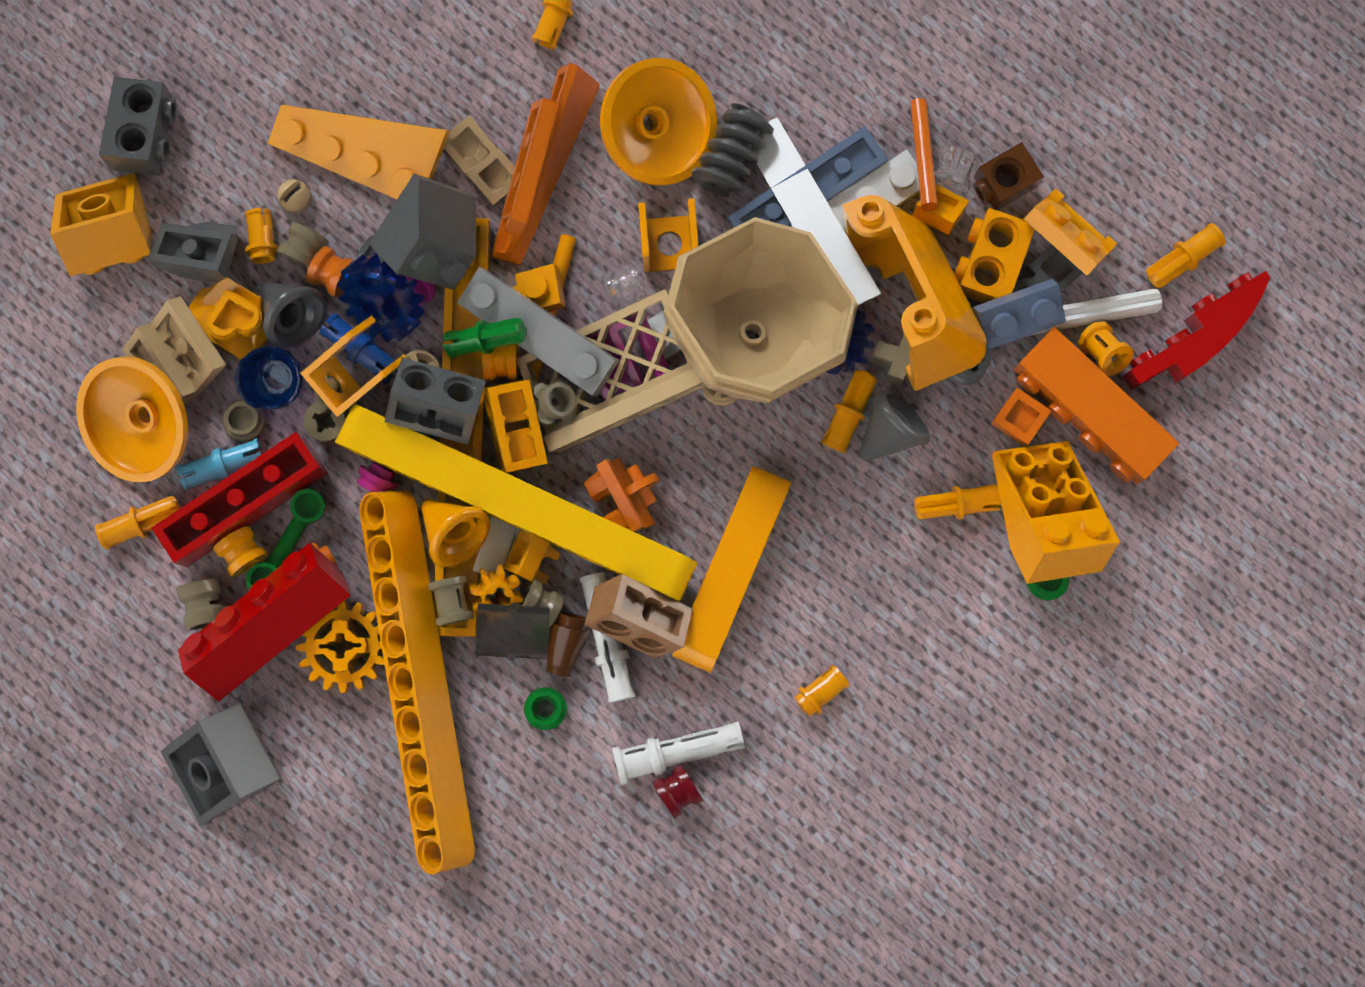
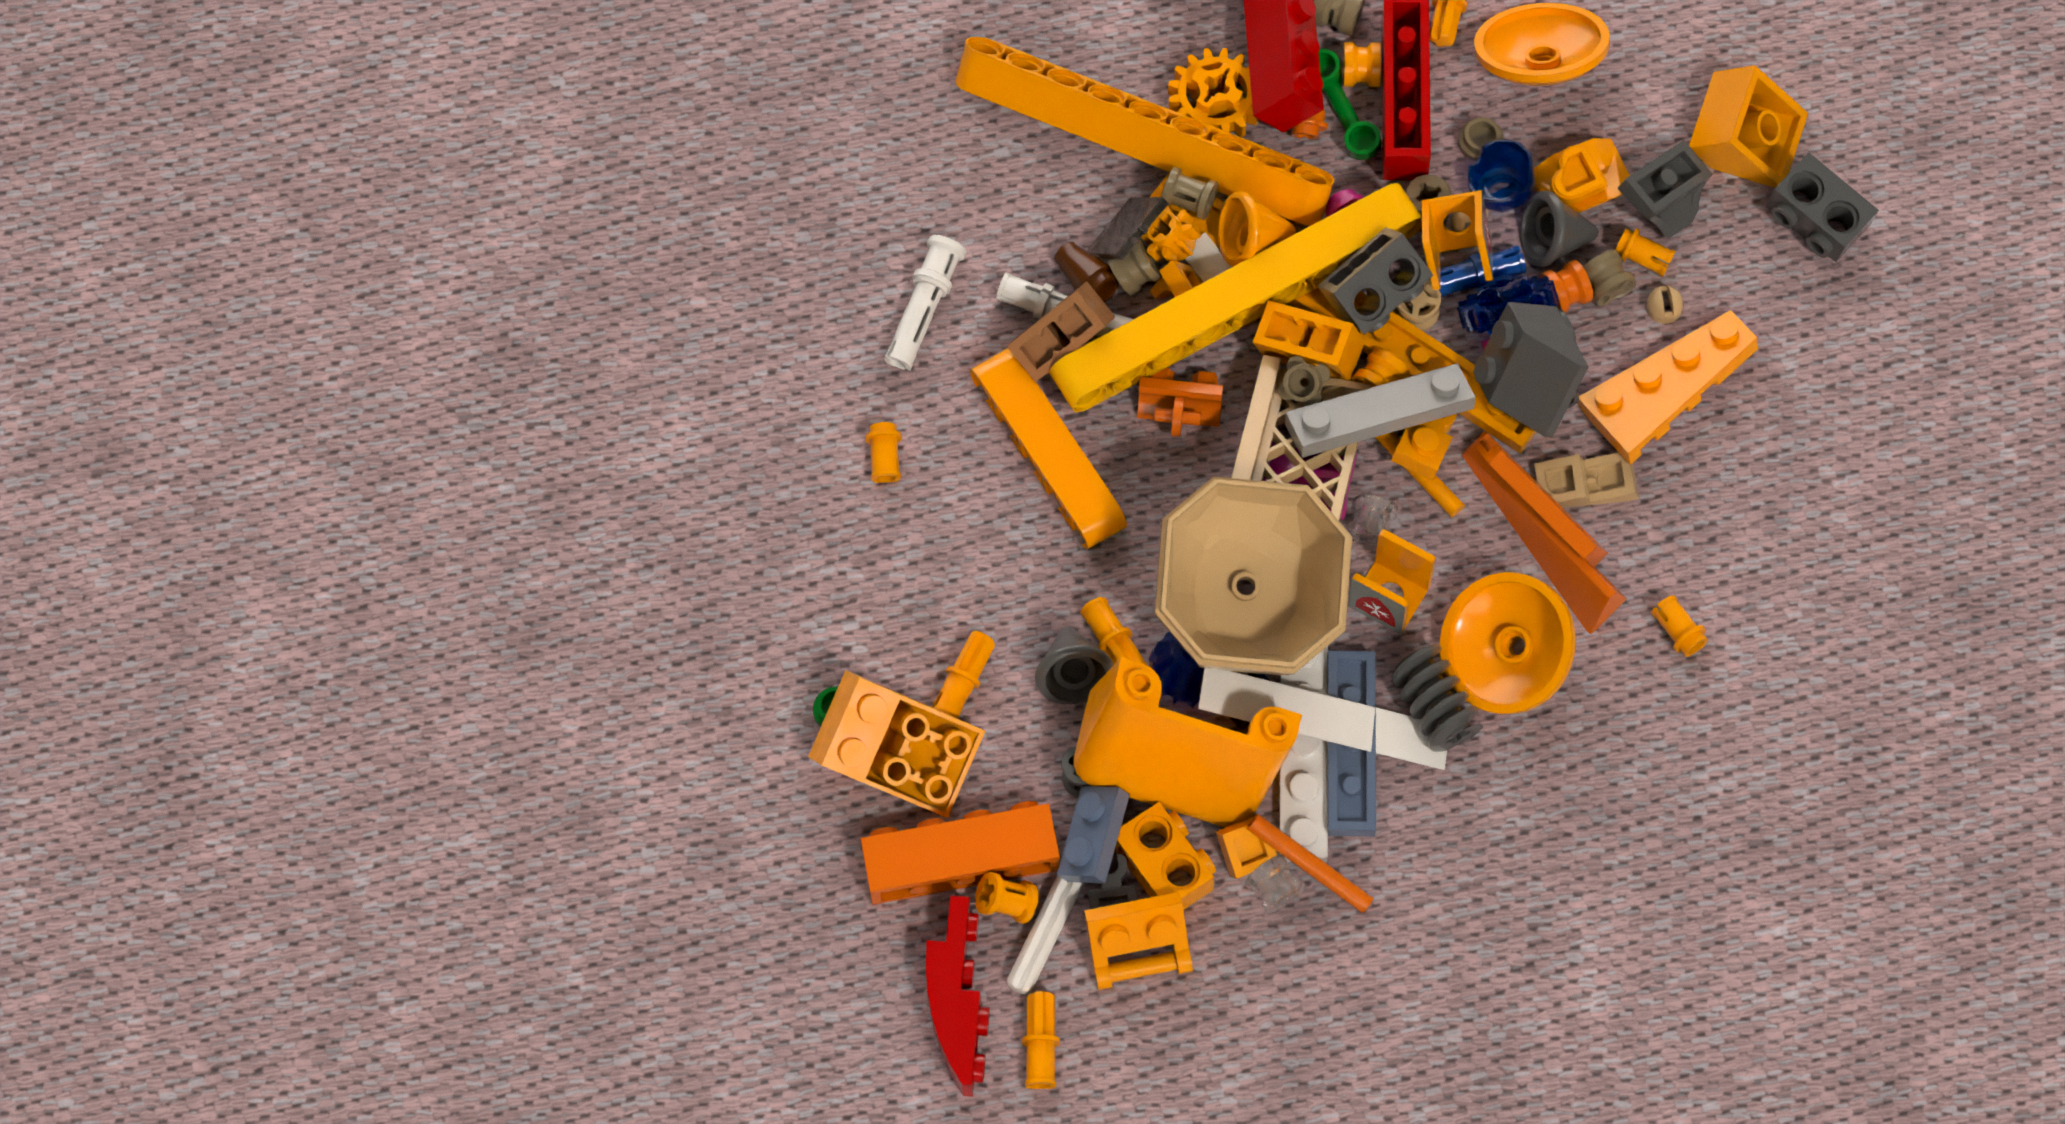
camera: 125 degrees right, 15 degrees down
(177, 348) = (1579, 113): tan slope -> none
(218, 465) = (1454, 97): medium azure pin -> none
(485, 337) = (1406, 360): green axle -> none
(531, 708) = (1036, 211): green plate -> none
(677, 791) = (888, 278): dark red wheel -> none
(1019, 165) = (1230, 945): reddish brown brick -> none
(1021, 417) = (999, 784): orange plate -> none

